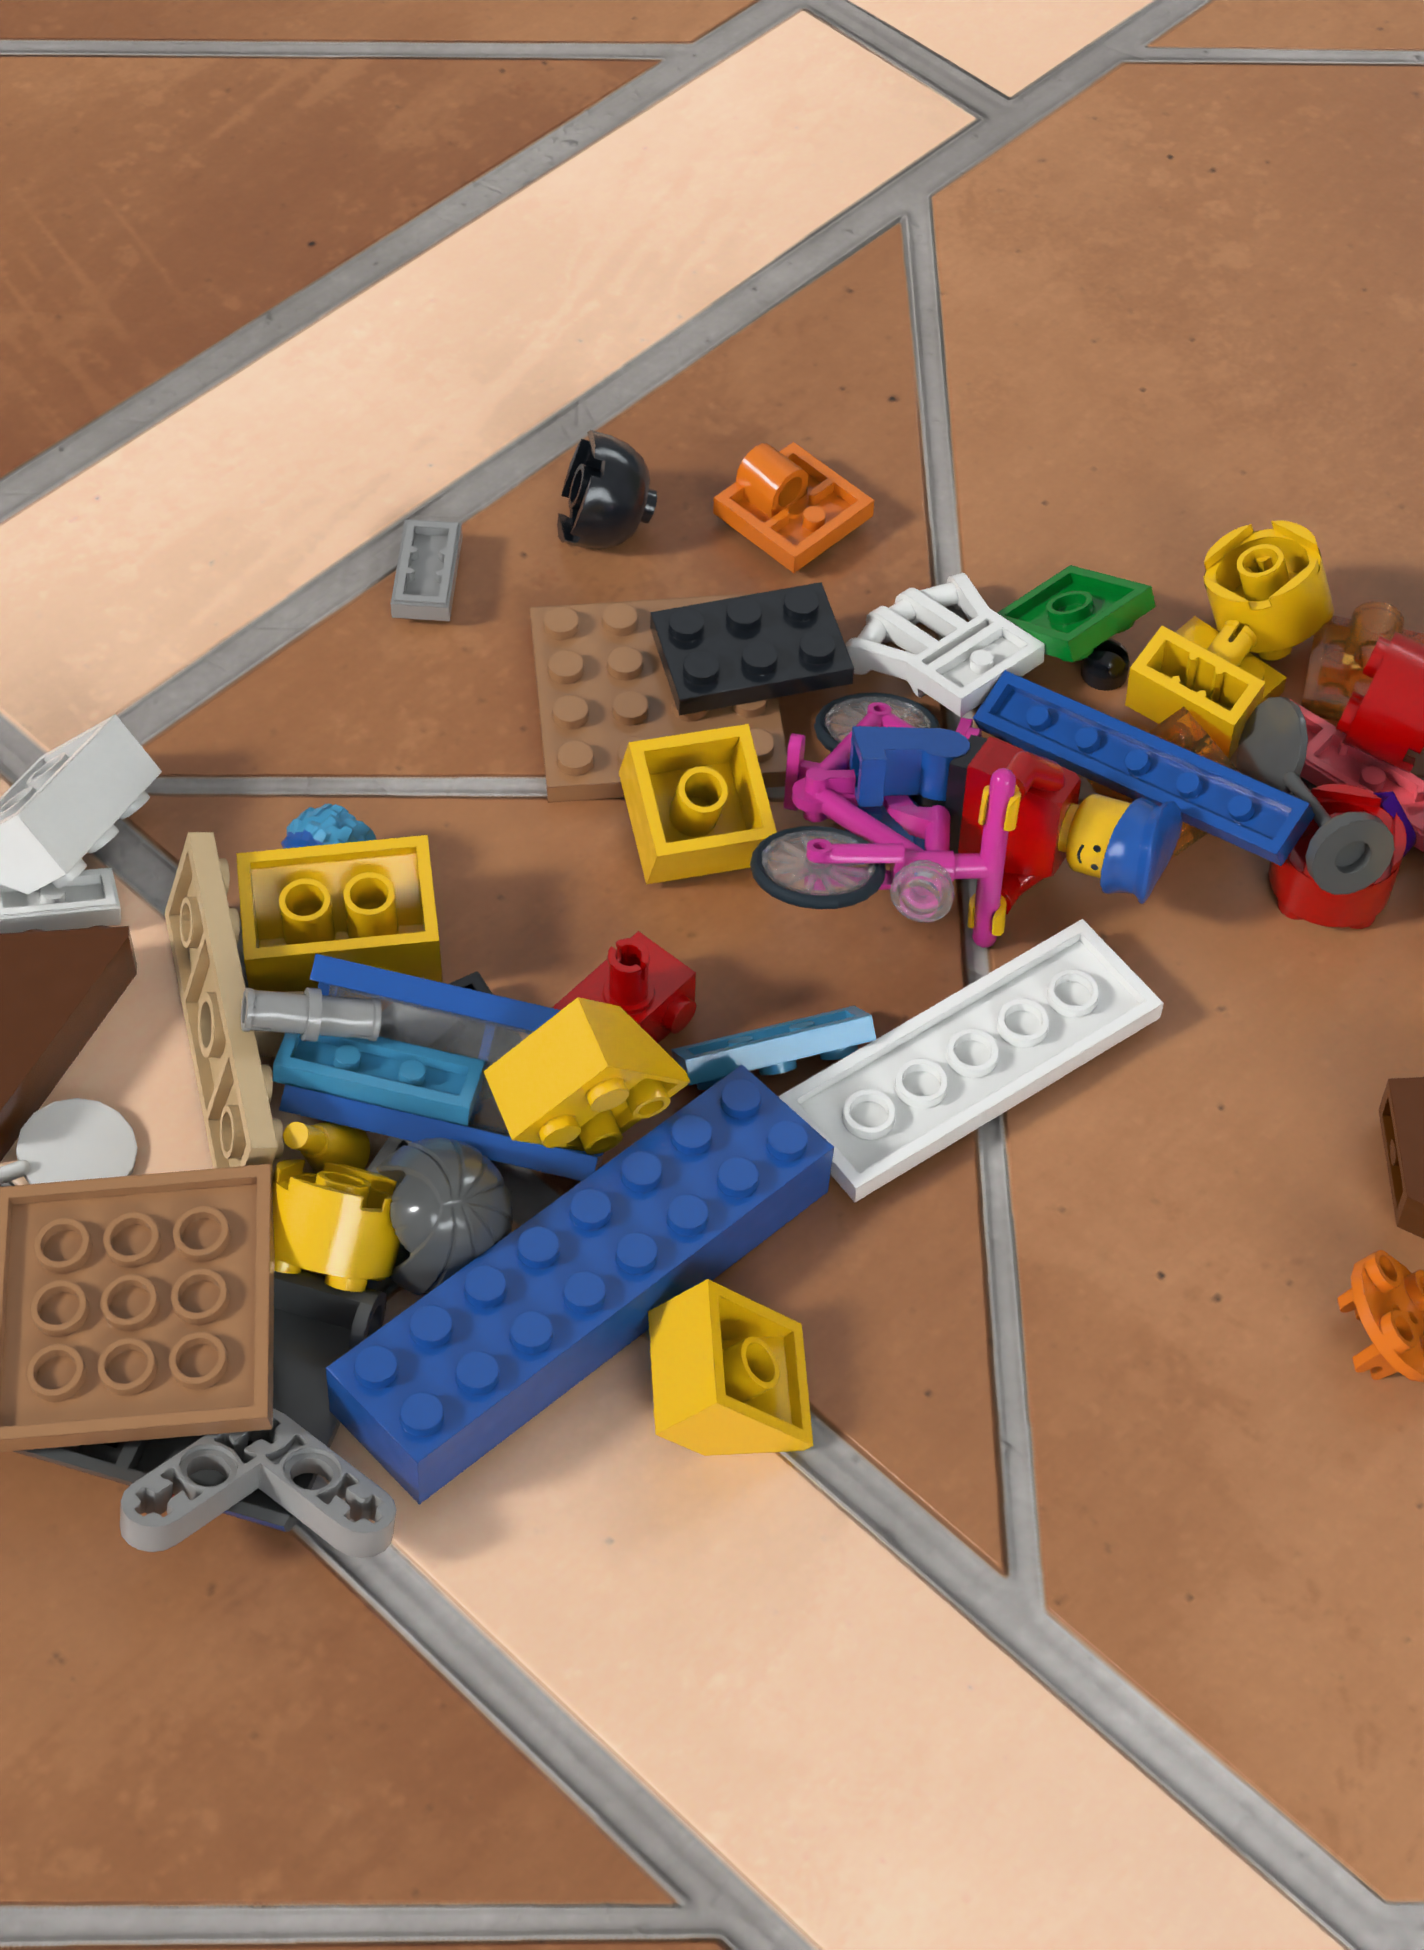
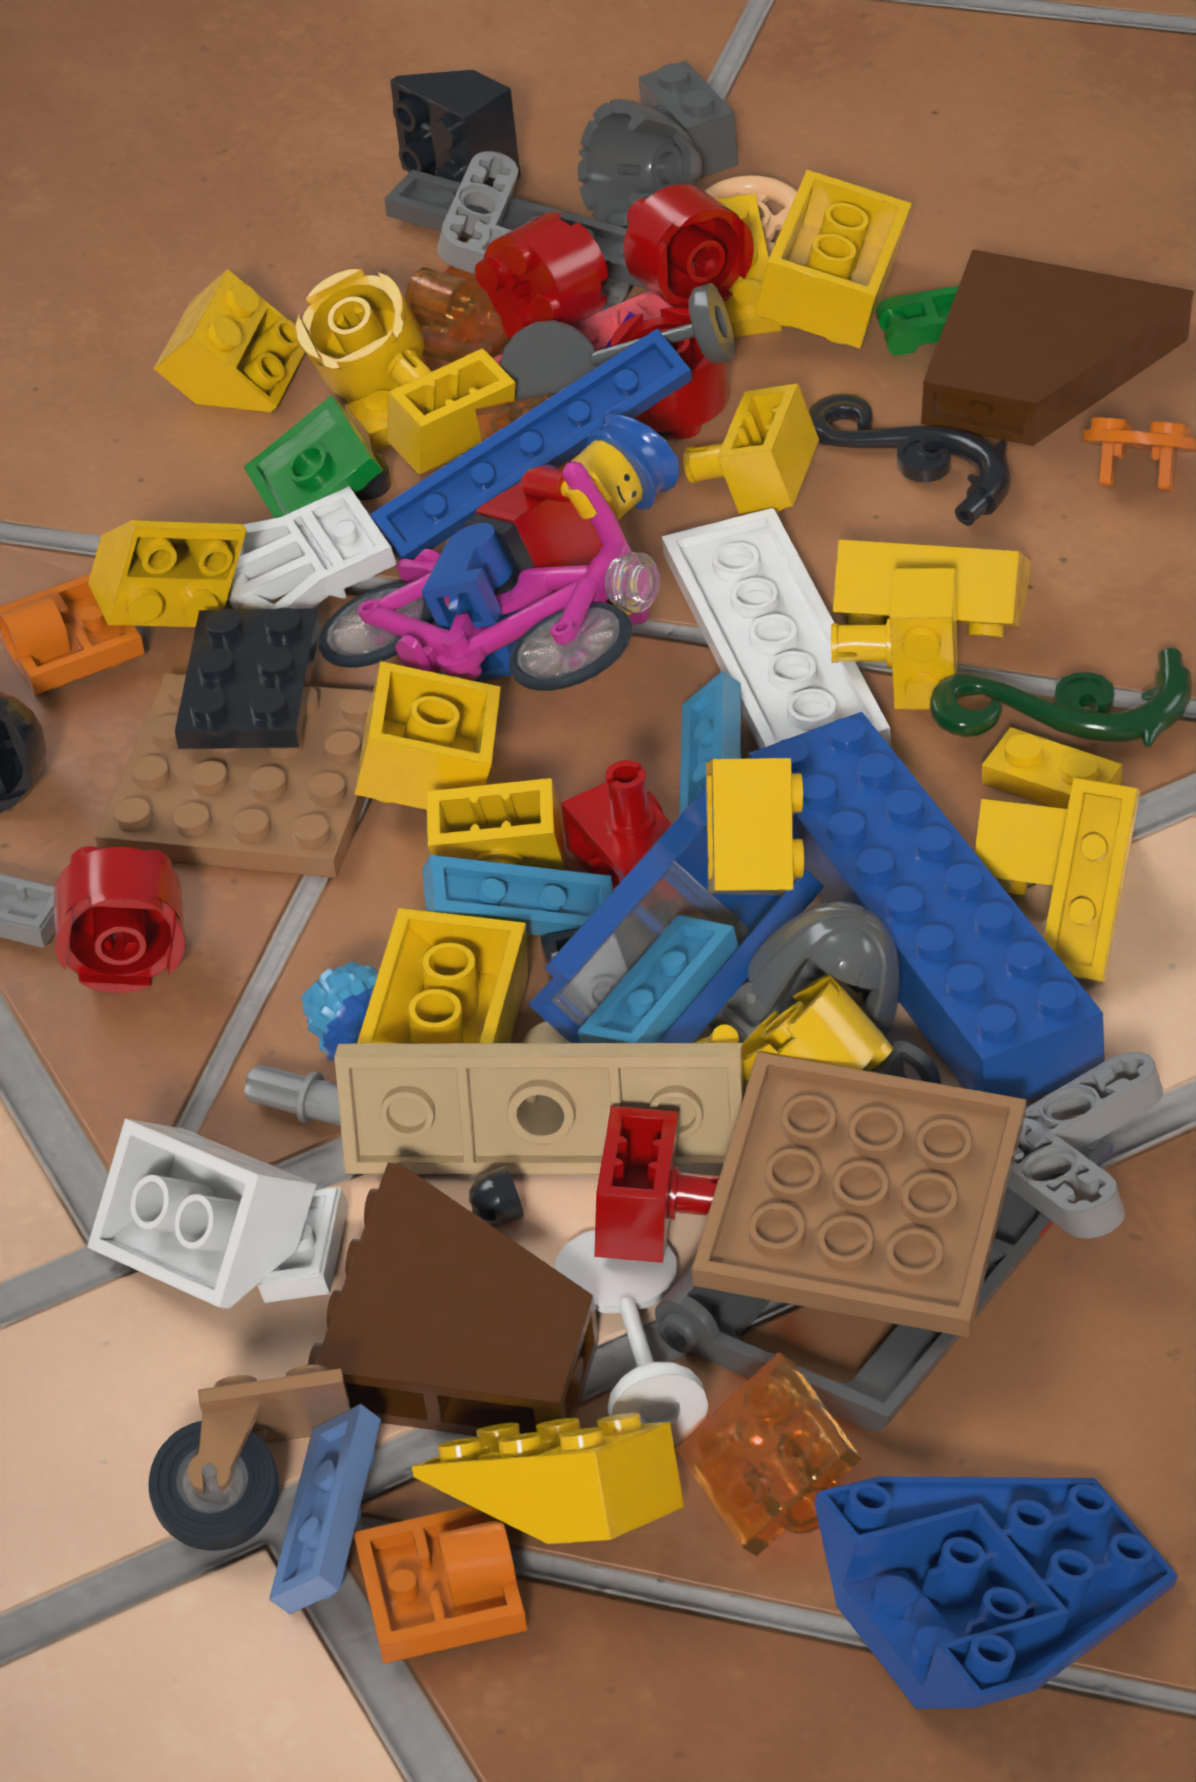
camera: 65 degrees left, 10 degrees down
(141, 1032) = (496, 1198): none -> black hinge
(143, 1125) = (643, 1185): none -> red brick
(243, 835) = (306, 1096): none -> light grey axle
(311, 1014) = (600, 996): light grey pin -> none
(398, 644) = (118, 917): none -> red brick
(498, 925) = (540, 897): none -> dark azure plate
(589, 895) = (498, 823): none -> yellow brick
(640, 1413) = (1091, 876): none -> yellow plate
(858, 542) = (164, 571): none -> yellow slope
(858, 1360) = (1043, 768): none -> yellow plate
(935, 1347) = (1067, 712): none -> dark green plant
(974, 1173) = (916, 640): none -> yellow brick
(1100, 1176) = (987, 582): none -> yellow slope
(1225, 492) = (231, 349): none -> yellow slope
(1242, 970) = (762, 451): none -> yellow brick
(1314, 1114) = (921, 451): none -> black plant

